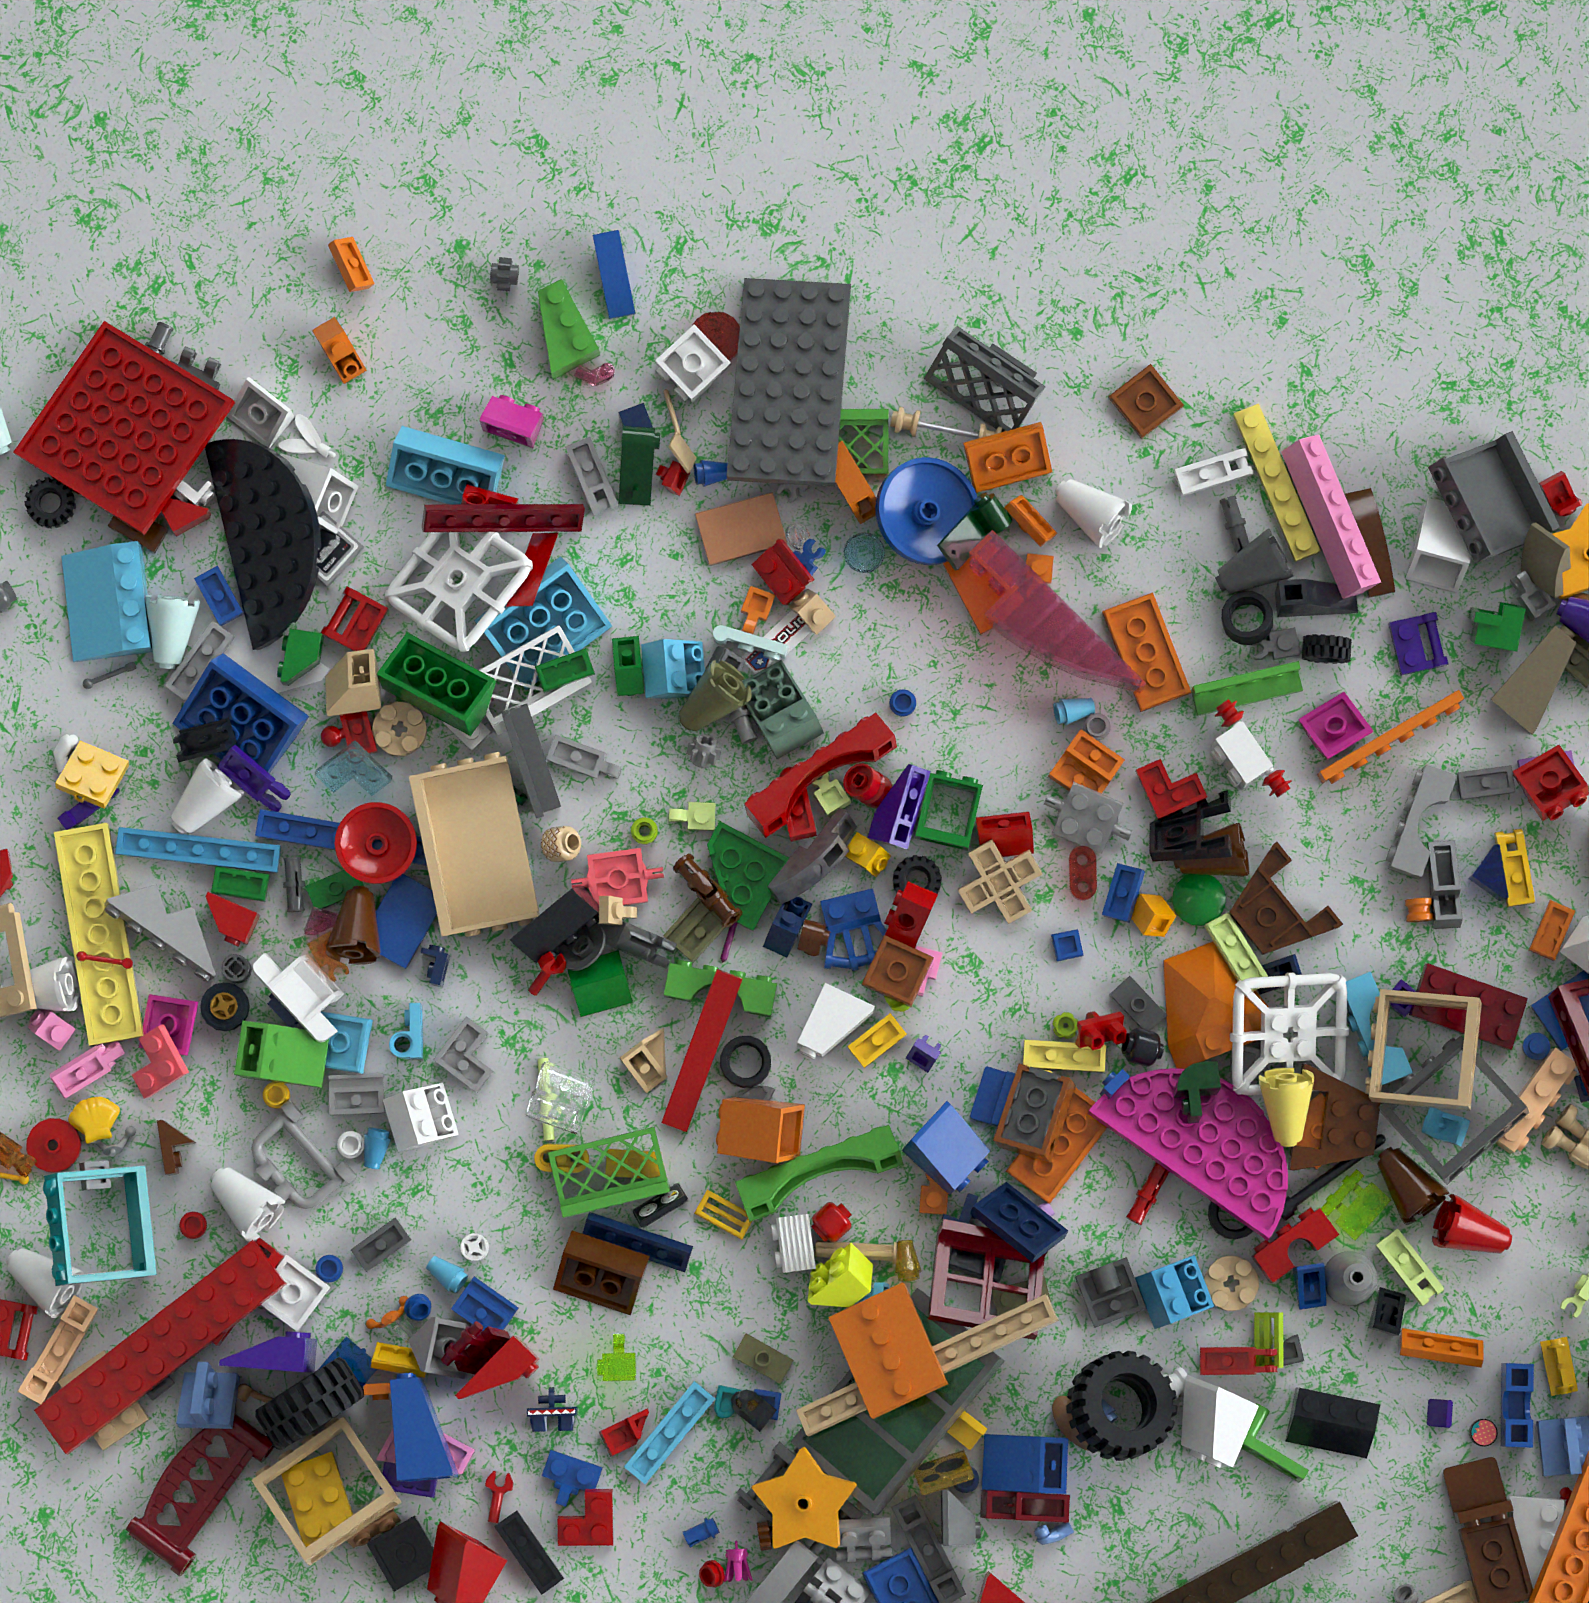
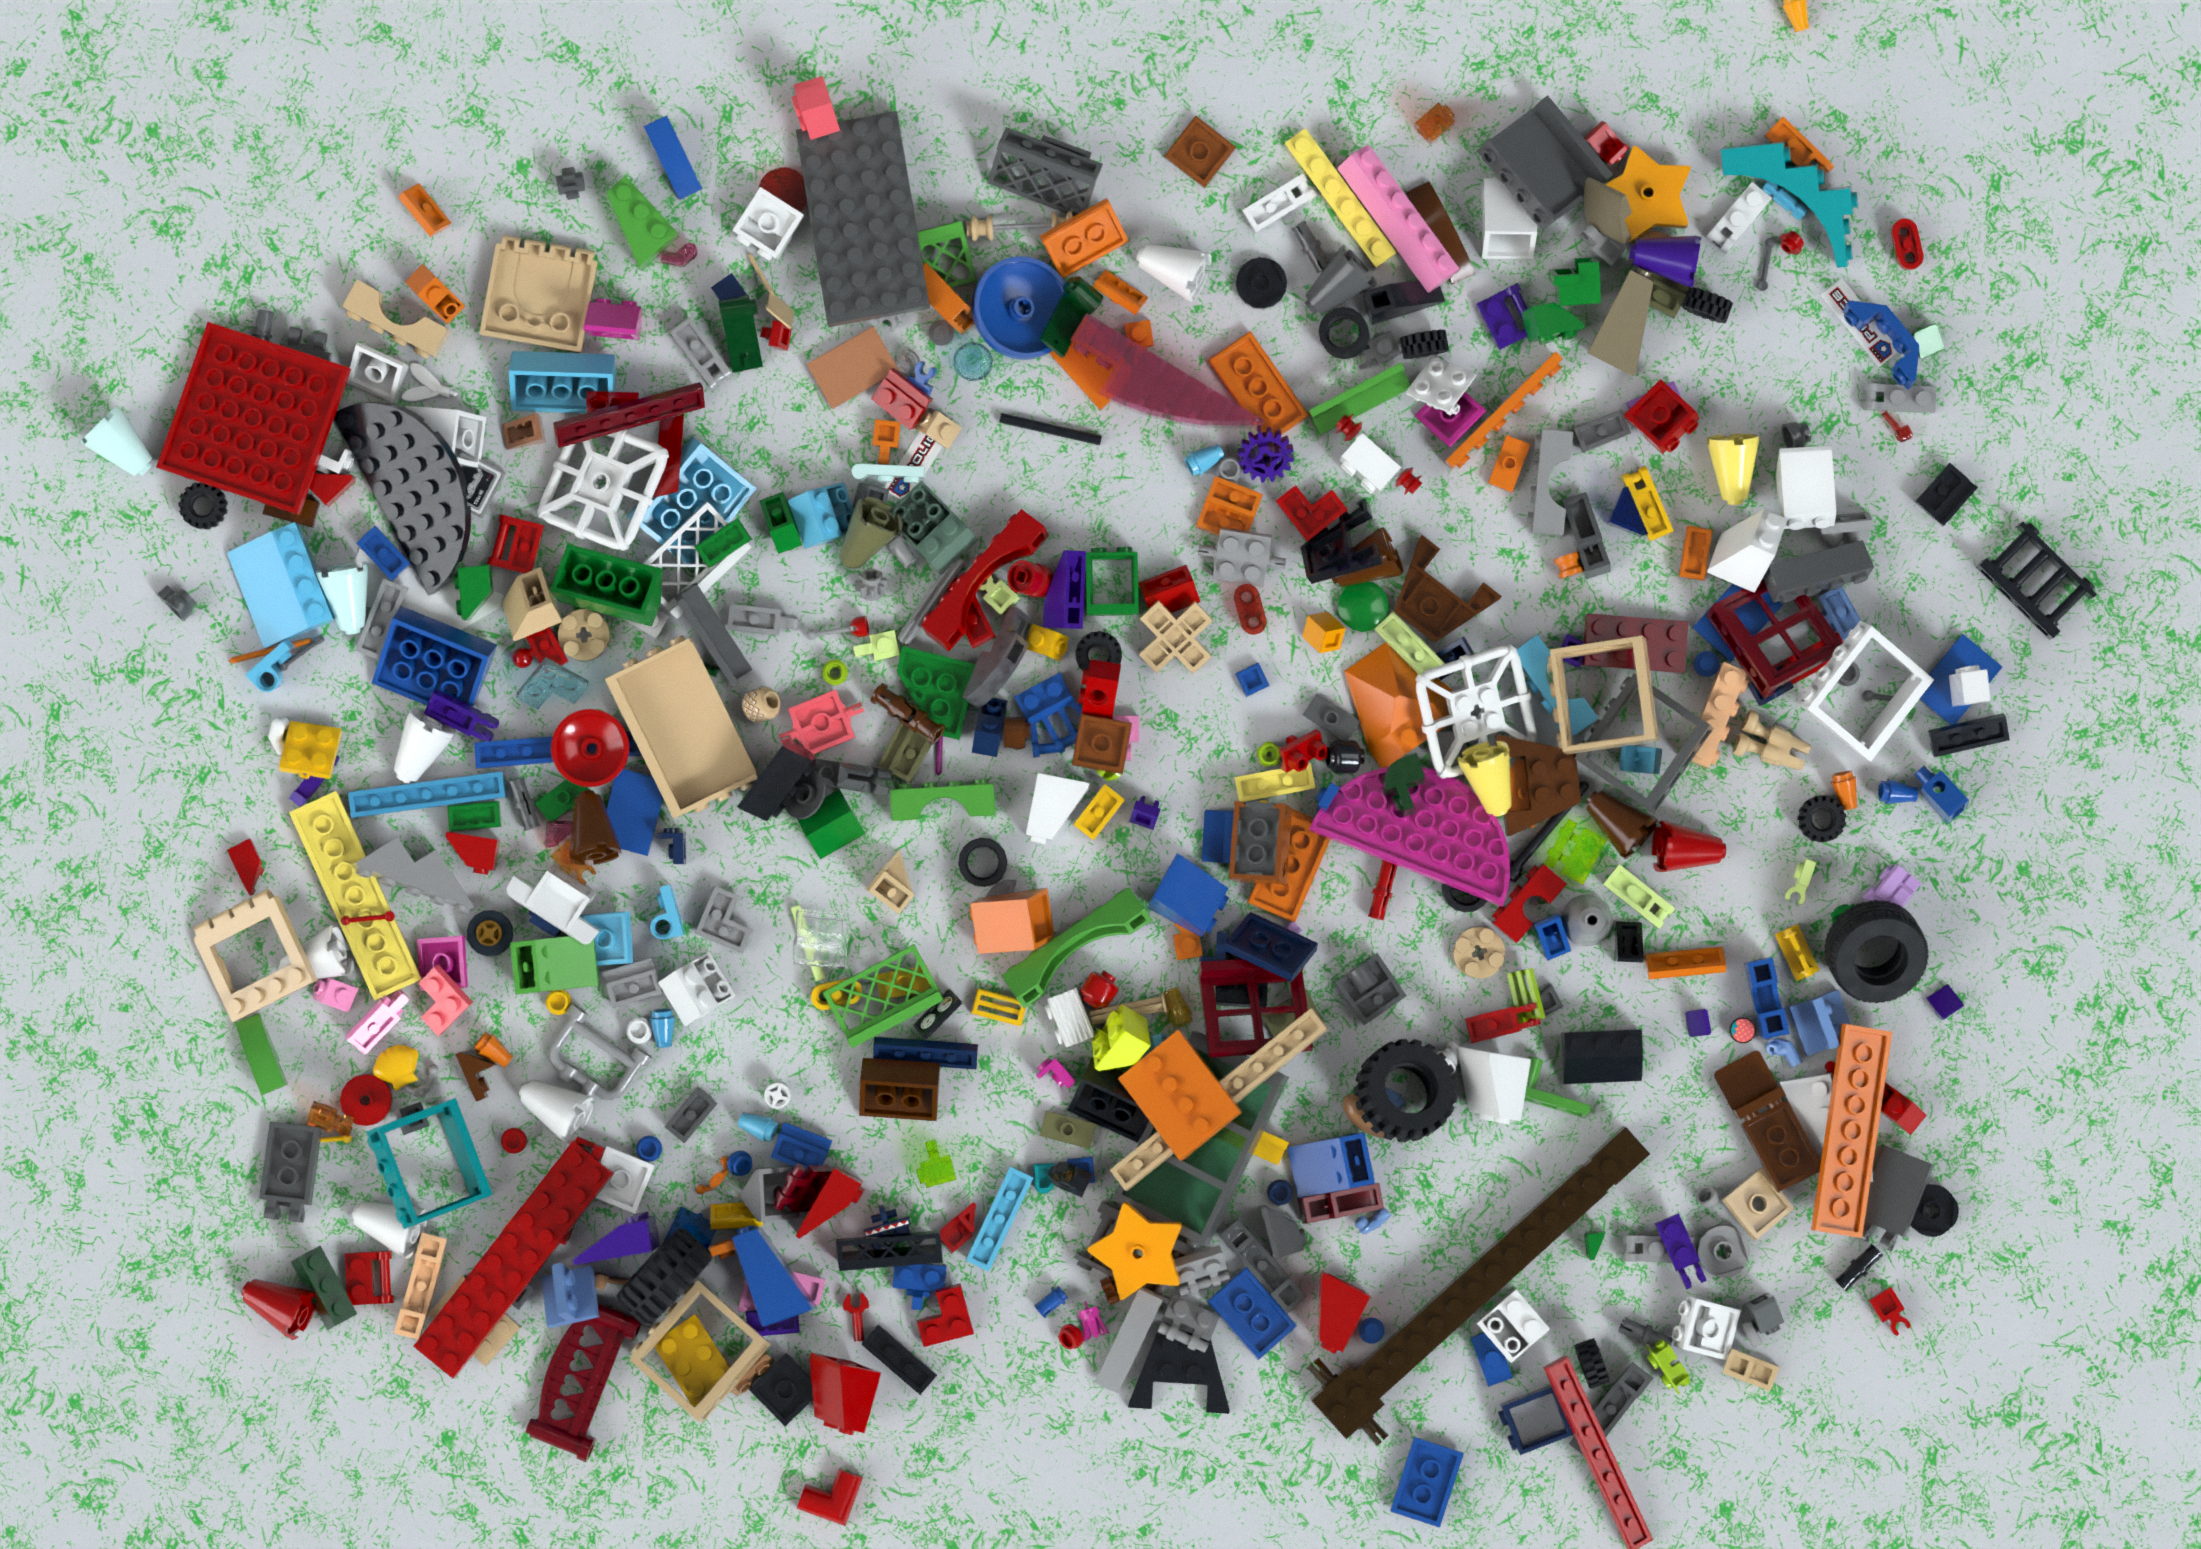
camera: 10 degrees left, 5 degrees up
(79, 665) = (263, 652): none -> orange axle
(86, 671) = (268, 664): none -> medium azure plate
(196, 1126) = (492, 1049): none -> orange cone
(205, 739) = (406, 691): black hinge -> none
(239, 972) = (495, 893): dark grey wheel -> none
(317, 388) = (424, 335): none -> tan arch
(392, 510) = (524, 432): none -> nougat slope
(443, 376) = (539, 294): none -> tan hinge
(547, 1442) = (889, 1256): none -> black fence
(548, 967) = (779, 821): red bar -> none
(612, 910) = (825, 755): tan plate -> none
(679, 790) = (858, 627): none -> hinge
(702, 1050) = (940, 862): red tile -> none
(709, 472) = (810, 322): blue cone -> none
(758, 784) = (929, 602): none -> light grey axle
(769, 1300) = (1061, 1074): none -> dark pink bracket
(770, 260) = (814, 108): none -> coral brick
(811, 1341) = (1107, 1103): none -> black slope
(839, 516) = (941, 332): none -> flat silver plate
(902, 702) = (1044, 492): blue plate -> none
(925, 640) = (1050, 429): none -> black bar
(943, 1472) = (1258, 1192): clear yellow tile -> none
(1123, 893) = (1292, 618): blue plate -> none
(1125, 720) = (1253, 458): none -> dark purple gear
(1174, 1292) = (1429, 974): dark azure slope -> none
(1175, 547) = (1261, 283): none -> black tile
(1333, 695) = (1441, 385): none -> white hinge
(1383, 792) = (1509, 463): none -> orange plate
(1391, 431) = (1435, 123): none -> clear orange brick
(1459, 659) = (1550, 322): none -> green slope
(1522, 1462) = (1784, 1048): none -> medium blue arm

